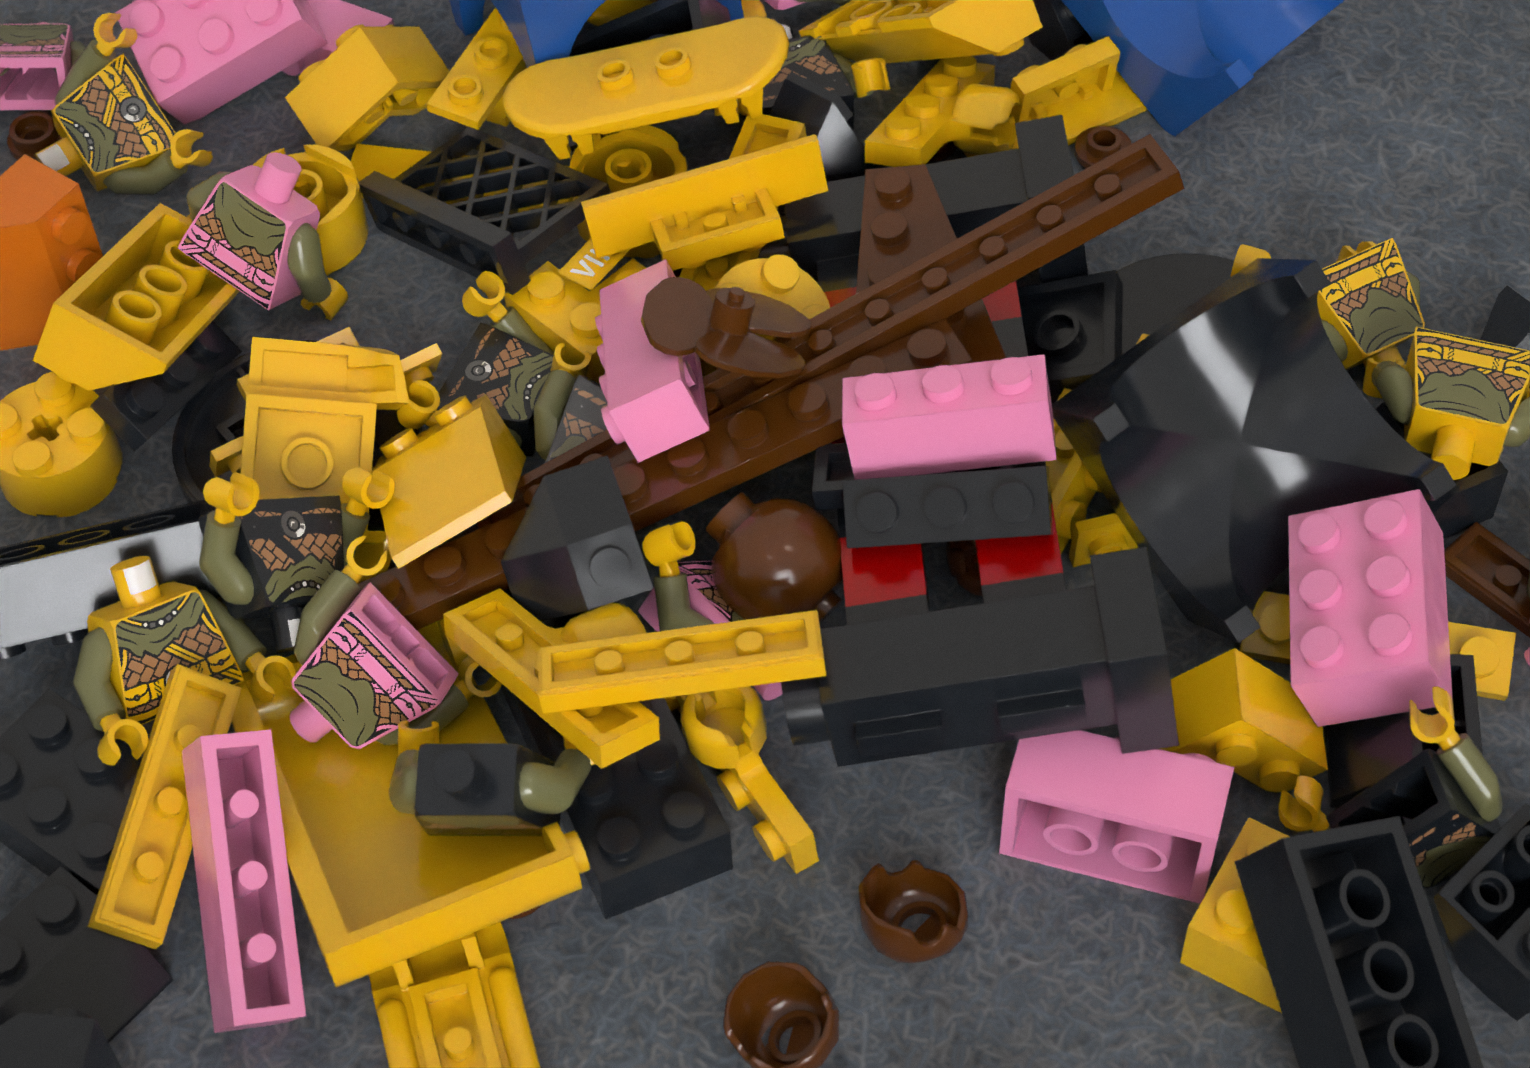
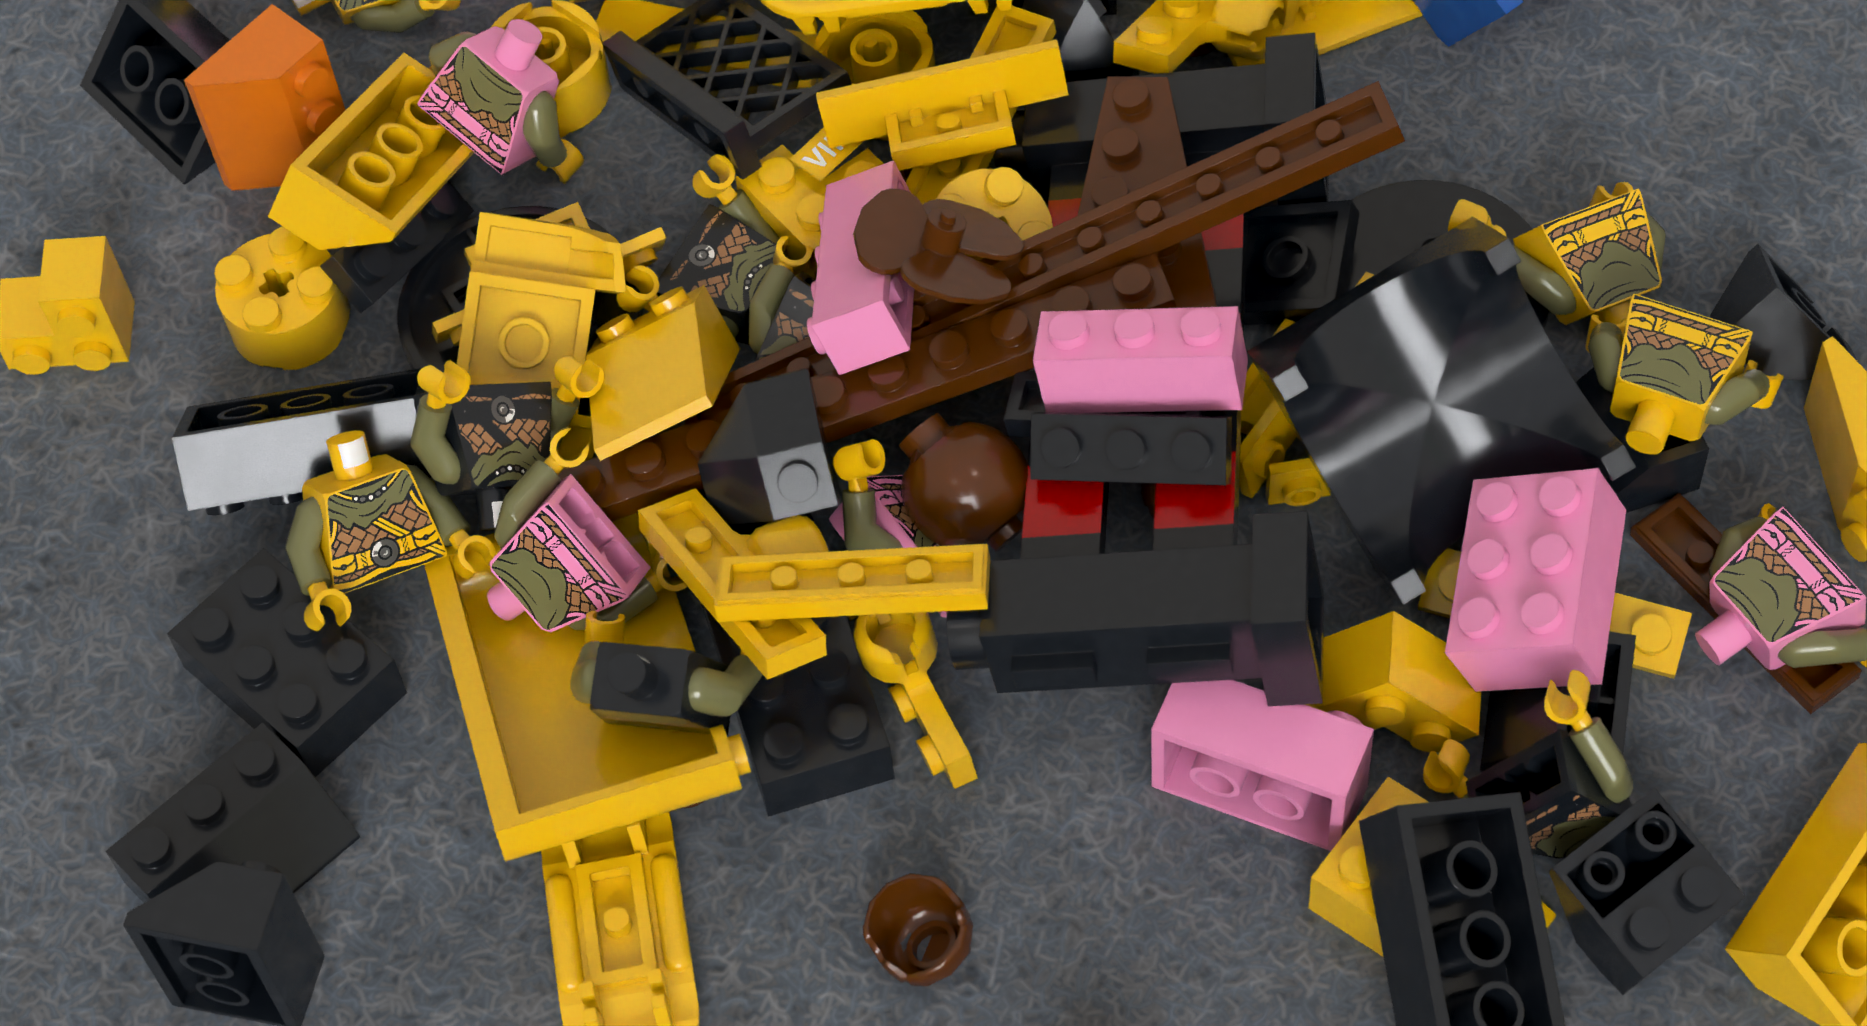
camera: 10 degrees right, 5 degrees up
(156, 828) = (363, 674): yellow tile -> none
(243, 881) = (429, 752): bright pink brick -> none
(894, 896) = (1037, 822): reddish brown hair -> none
(1090, 144) = (1366, 68): reddish brown plate -> none

